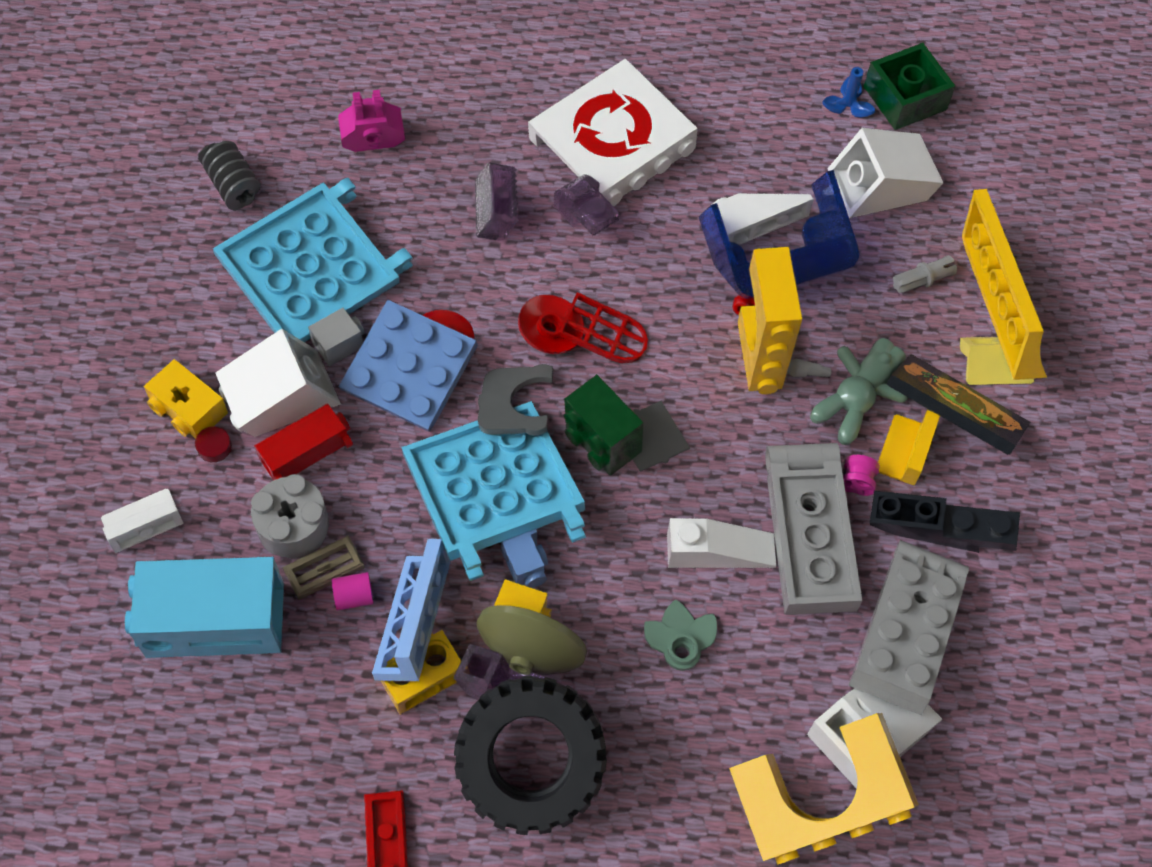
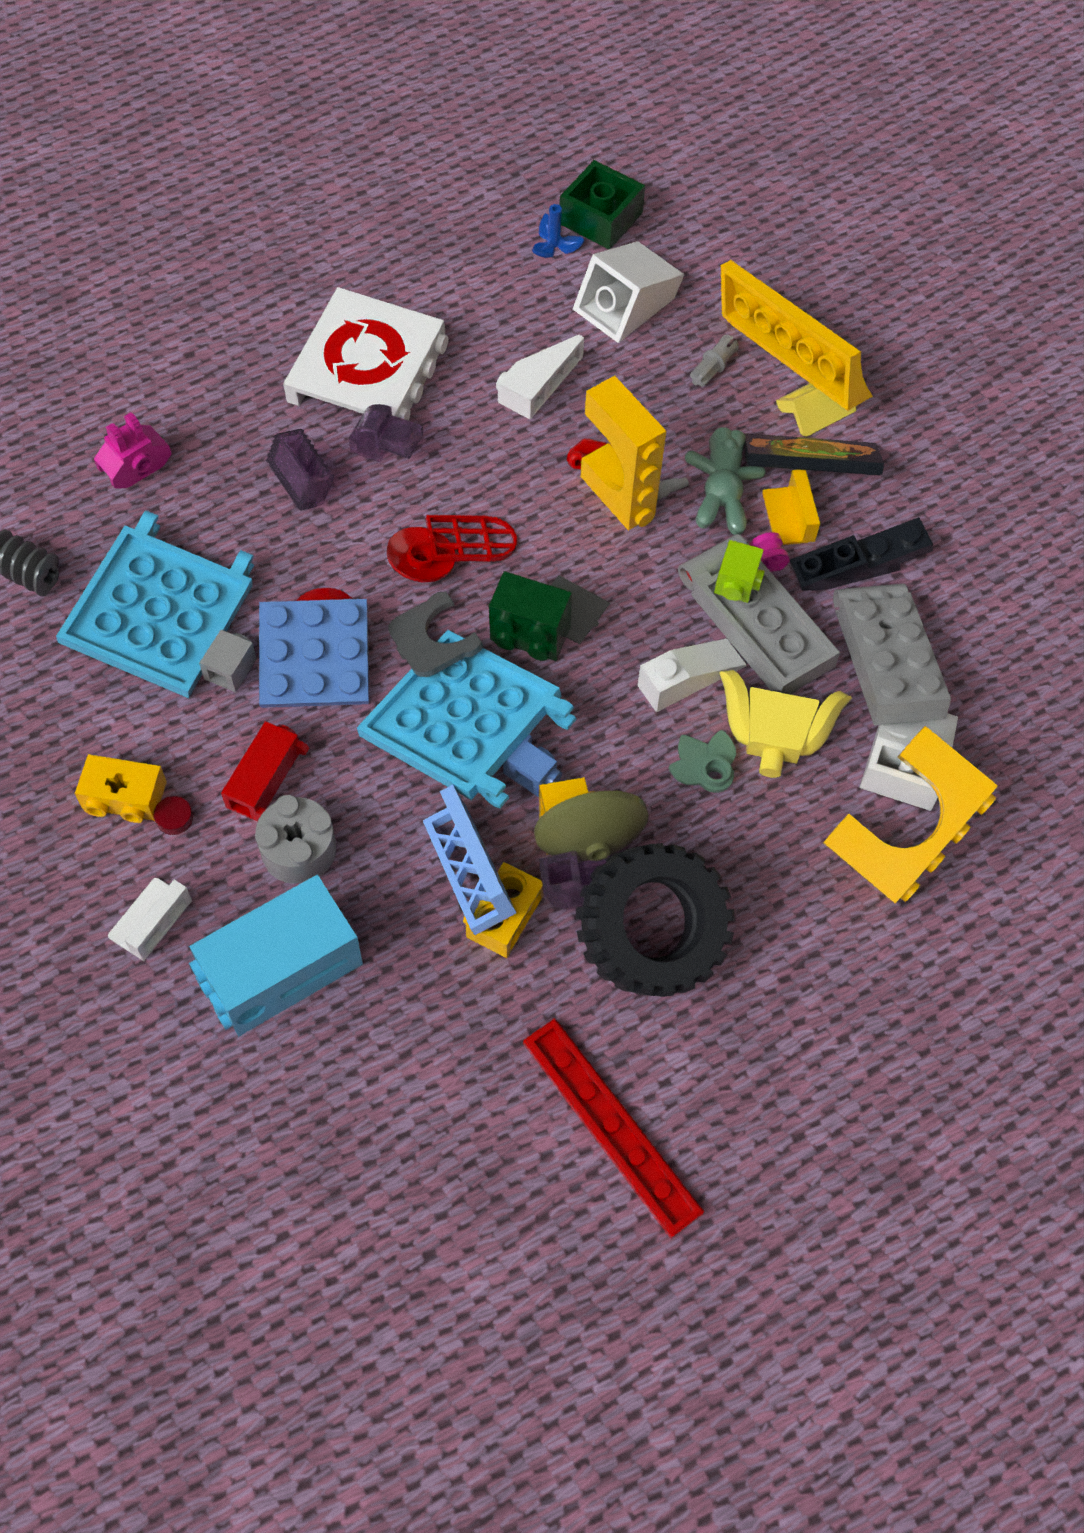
camera: 30 degrees left, 0 degrees up
(275, 384) = (199, 732): white slope -> none
(314, 586) = (371, 844): dark tan tile -> none
(352, 591) = (396, 874): dark pink piece -> none
(766, 637) = (778, 723): none -> light yellow torso
(810, 479) = (739, 572): none -> lime brick
(827, 240) = (613, 355): clear blue windscreen -> none

